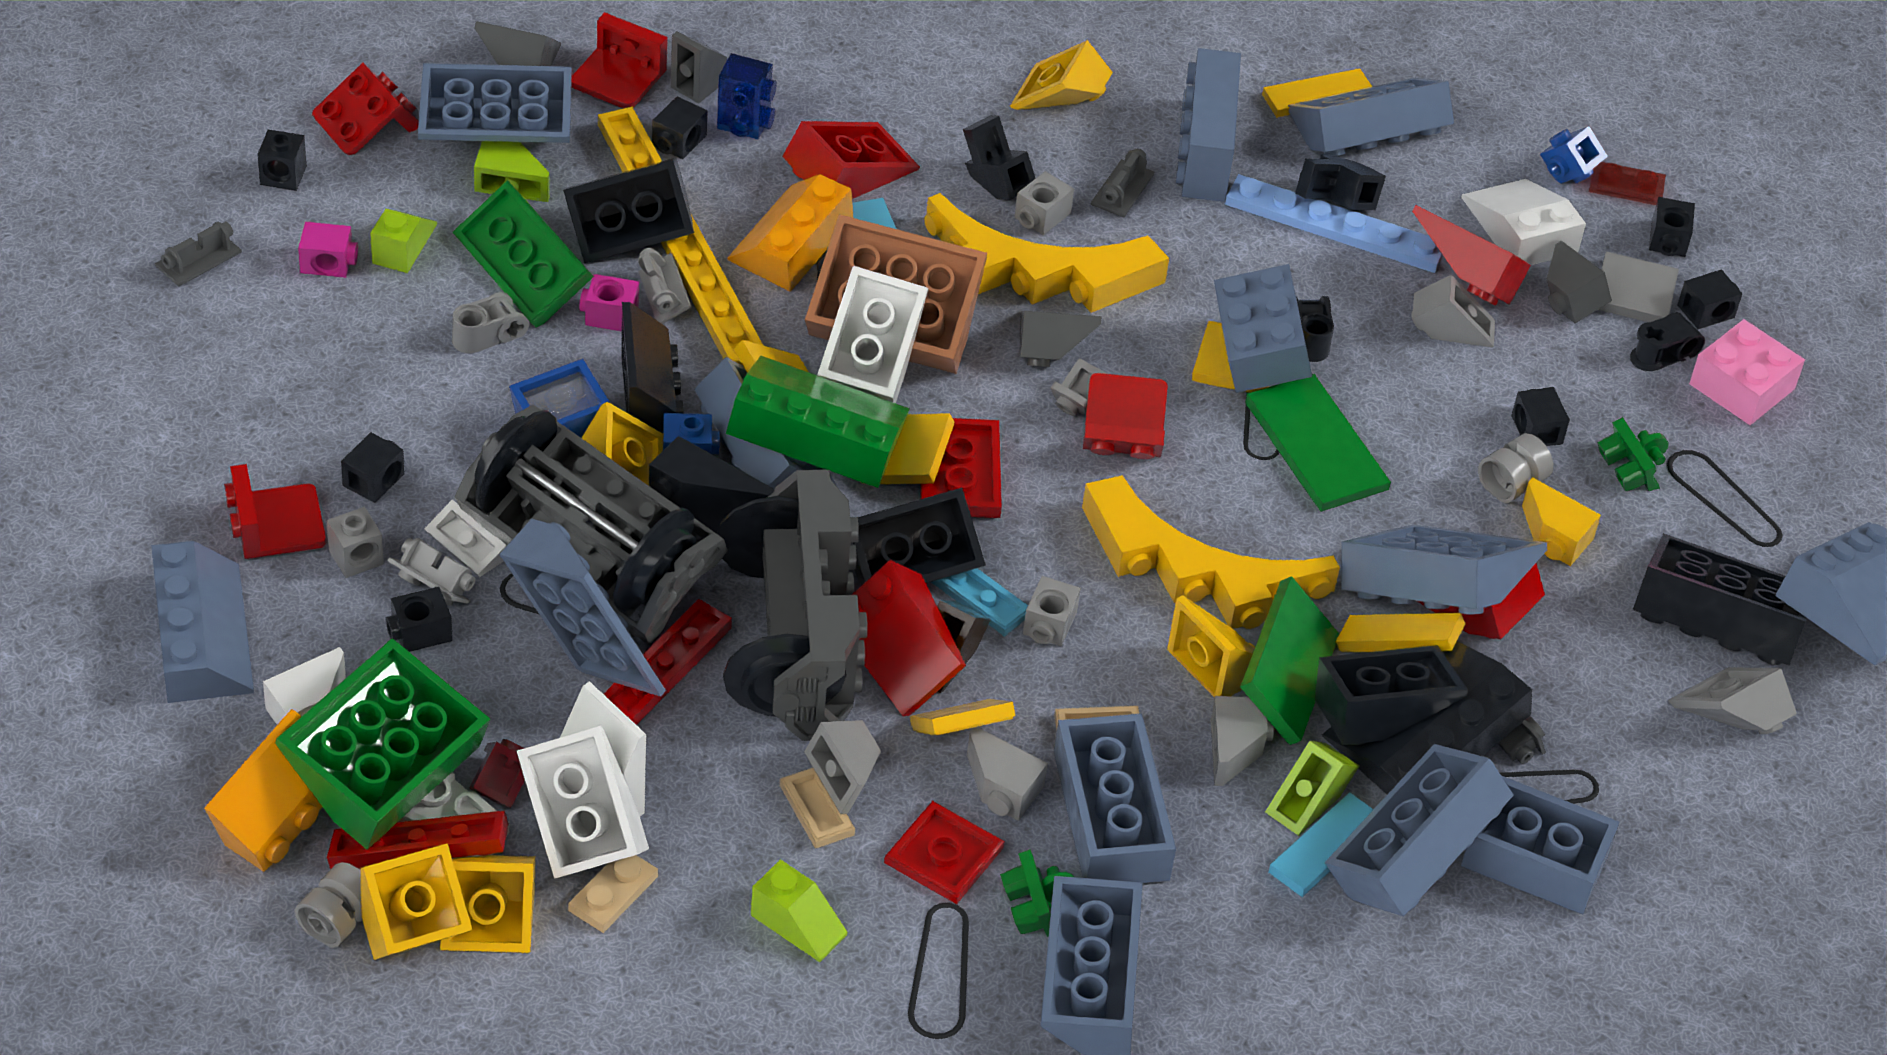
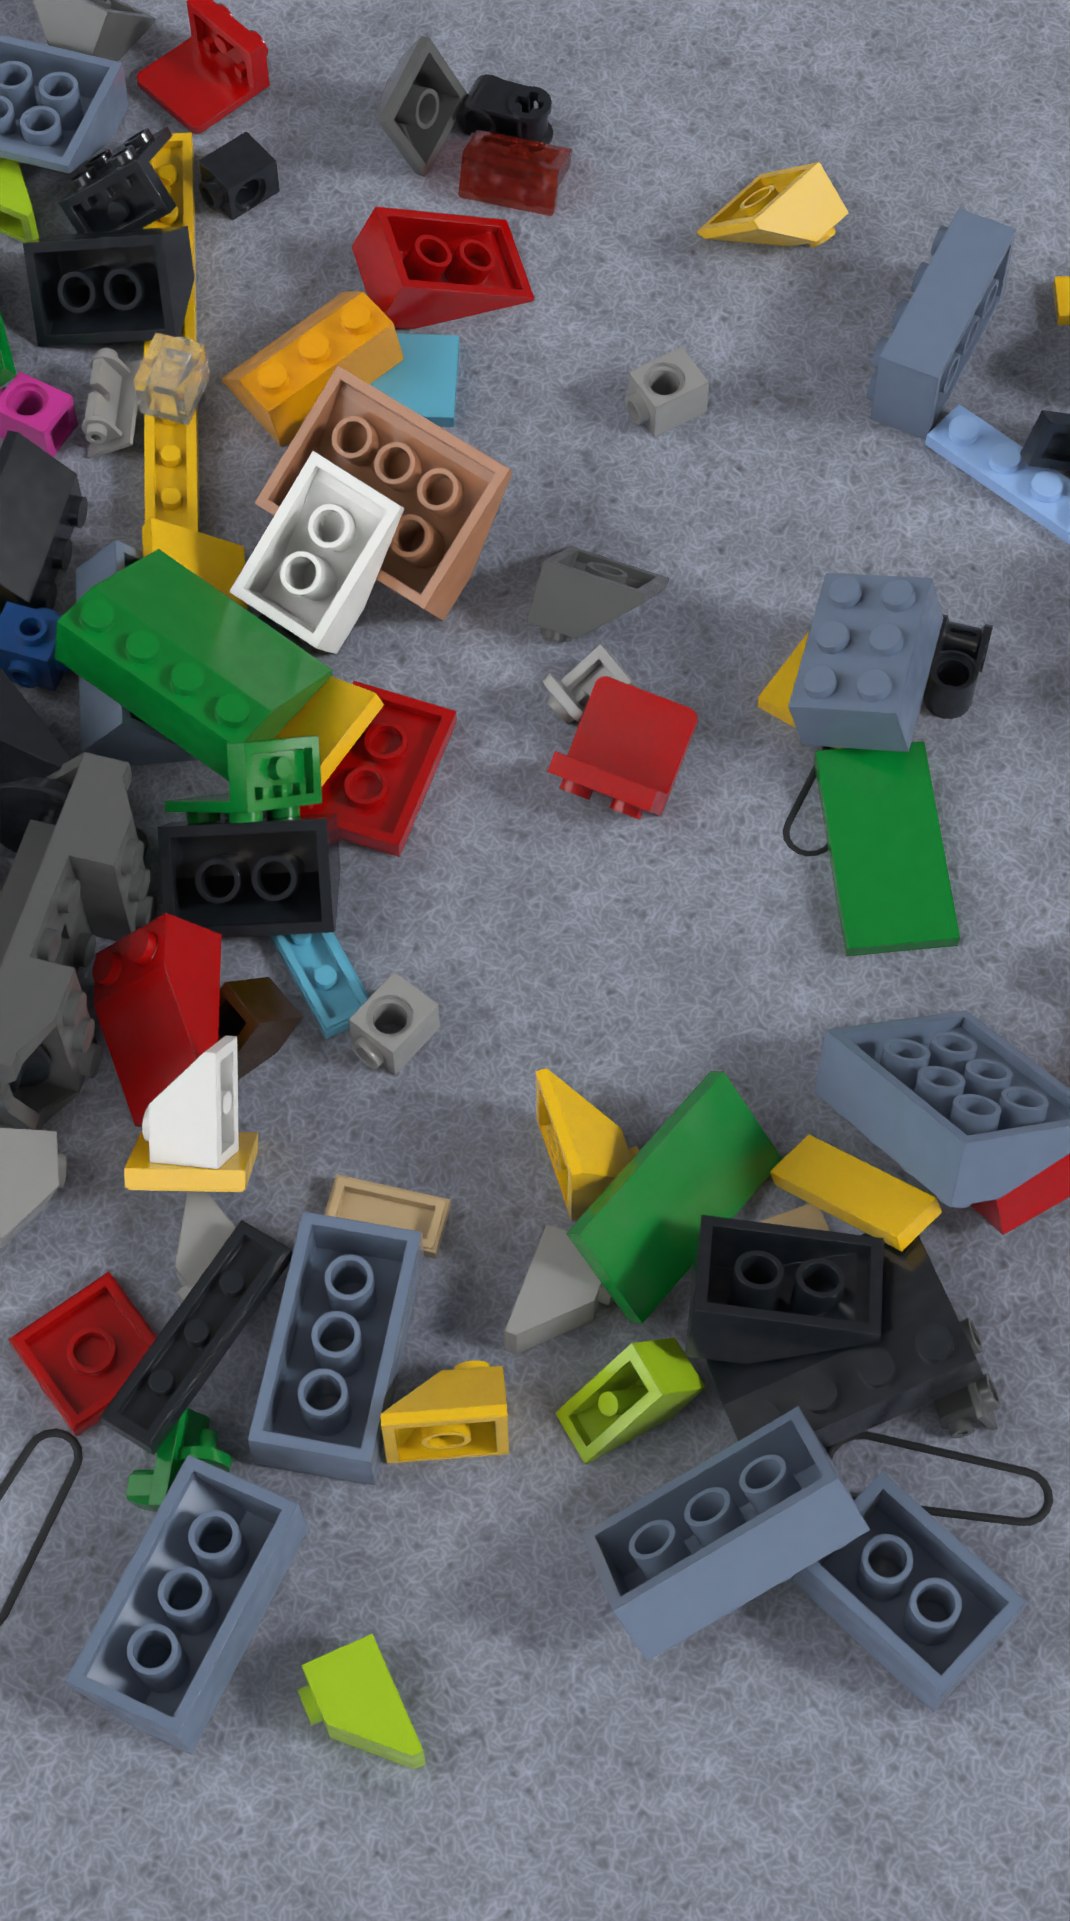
camera: 25 degrees right, 15 degrees up
(606, 146) = (120, 188): none -> black bracket
(694, 67) = (297, 90): dark grey slope -> none
(706, 256) = (172, 378): none -> clear brick
(745, 96) = (332, 150): clear blue brick -> none
(791, 53) = (420, 104): none -> dark grey slope
(845, 55) = (506, 109): none -> black piece
(869, 92) = (513, 172): none -> clear red bracket
(914, 474) = (262, 777): none -> green bracket
(962, 674) = (198, 1112): none -> white slope
(993, 163) = (624, 312): black brick -> none
(1023, 810) = (196, 1337): none -> black tile
(1040, 271) = (683, 515): yellow arch -> none
(1124, 184) = (794, 386): dark grey hinge -> none
(1213, 820) = (450, 1416): none -> yellow slope
(1231, 998) = (360, 1703): none -> lime slope
(1239, 584) = (618, 1010): yellow arch -> none
(1305, 859) = (597, 1493): medium azure tile -> none

